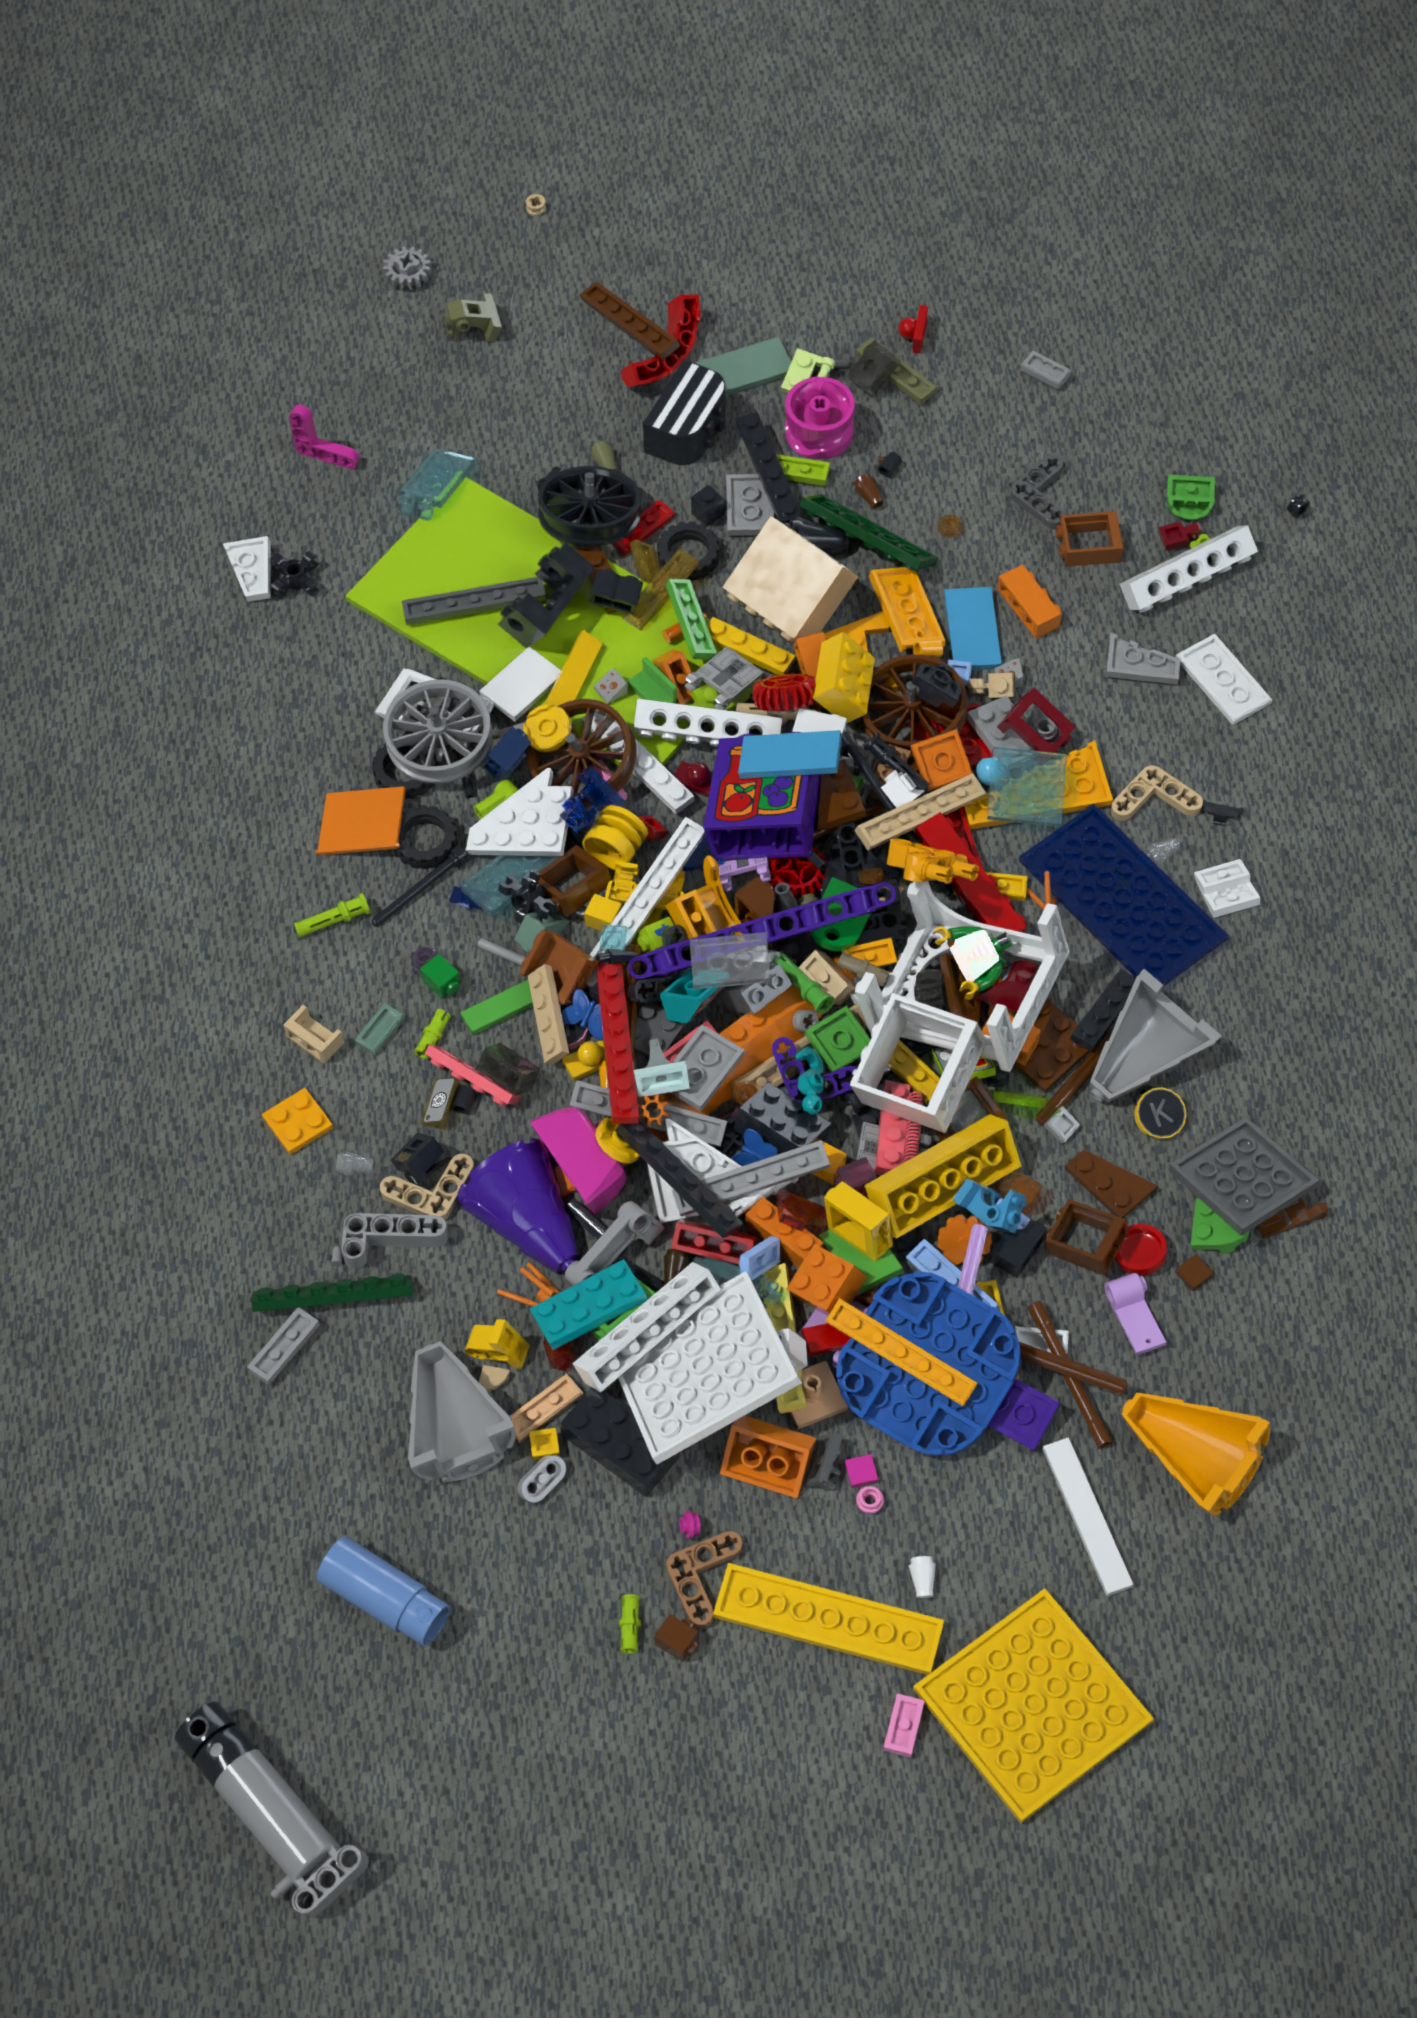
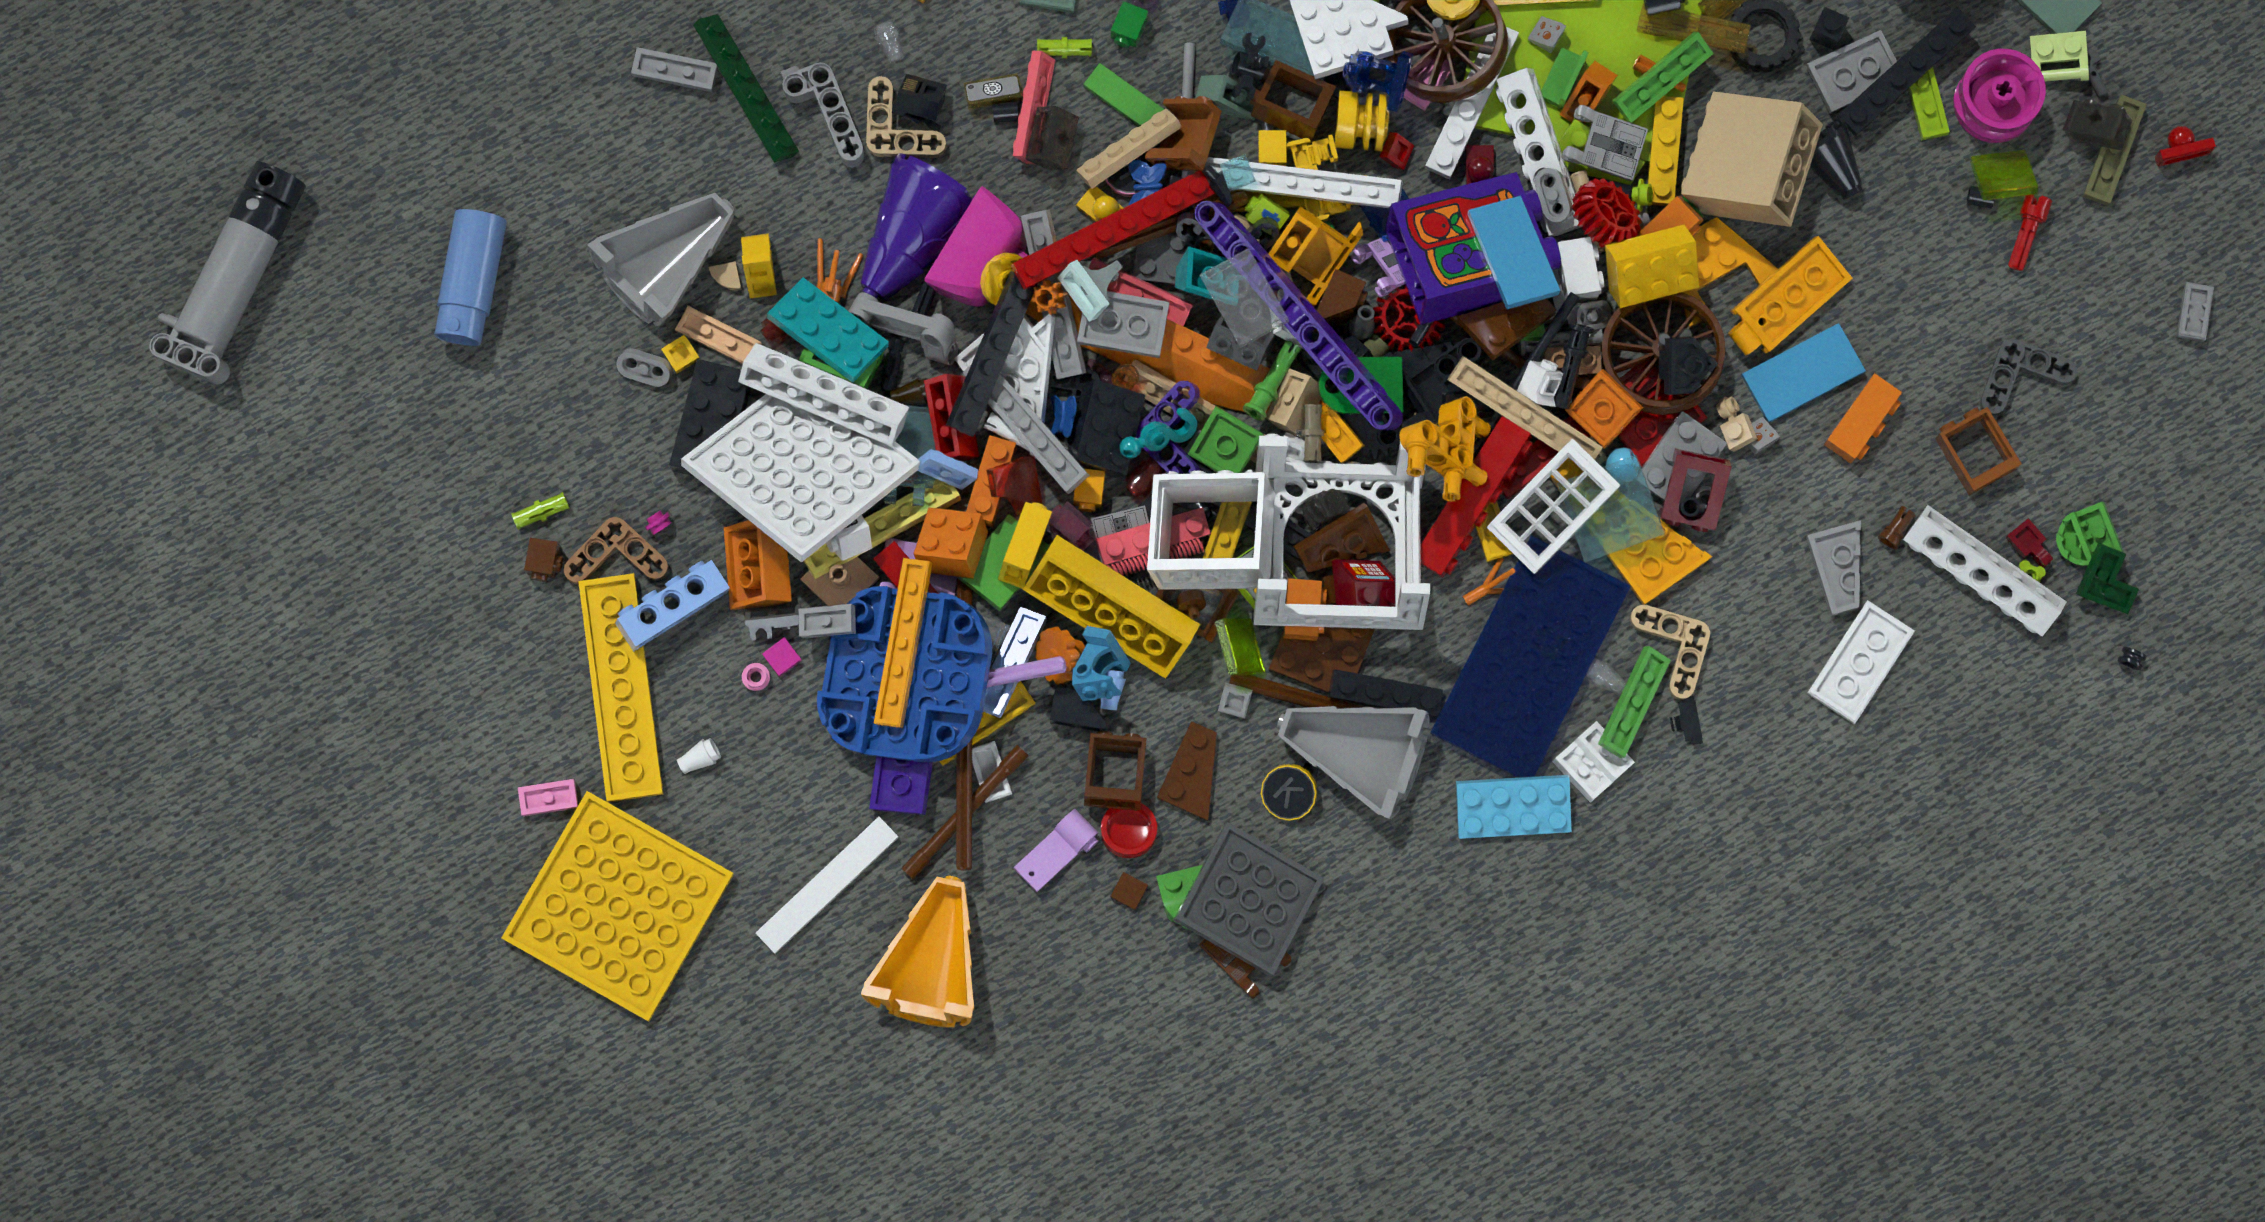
camera: 65 degrees right, 20 degrees up
(750, 722) = (1553, 195): none -> light grey plate
(771, 1500) = (639, 633): none -> light blue brick
(778, 668) = (1642, 195): none -> lime plate
(807, 1014) = (1240, 396): light grey bush -> none
(838, 1115) = (1141, 478): none -> clear red brick
(851, 1408) = (827, 621): none -> light grey plate
(868, 490) = (1933, 190): reddish brown cone -> none
(871, 875) = (1428, 395): clear orange tile -> none
(873, 534) = (1872, 212): dark green plate -> none
(881, 441) = (2004, 175): none -> clear neon green tile
(921, 437) = (2033, 214): none -> red piece
(950, 526) = (1929, 294): clear orange tile -> none
(963, 669) = (1736, 381): light blue tile -> none
(968, 1113) = (1191, 602): none -> reddish brown tile
(976, 955) = (1373, 539): torso -> none
(1022, 867) = (1516, 544): none -> white piece
(1023, 1185) = (1139, 688): clear orange brick -> none
(1053, 727) = (1700, 506): none -> black hinge
(1129, 617) = (1893, 534): none -> reddish brown pin
(1191, 837) = (1634, 702): none -> bright green plate
(1231, 499) = (2100, 580): none -> dark green plate
(1242, 955) = (1513, 806): none -> medium azure plate

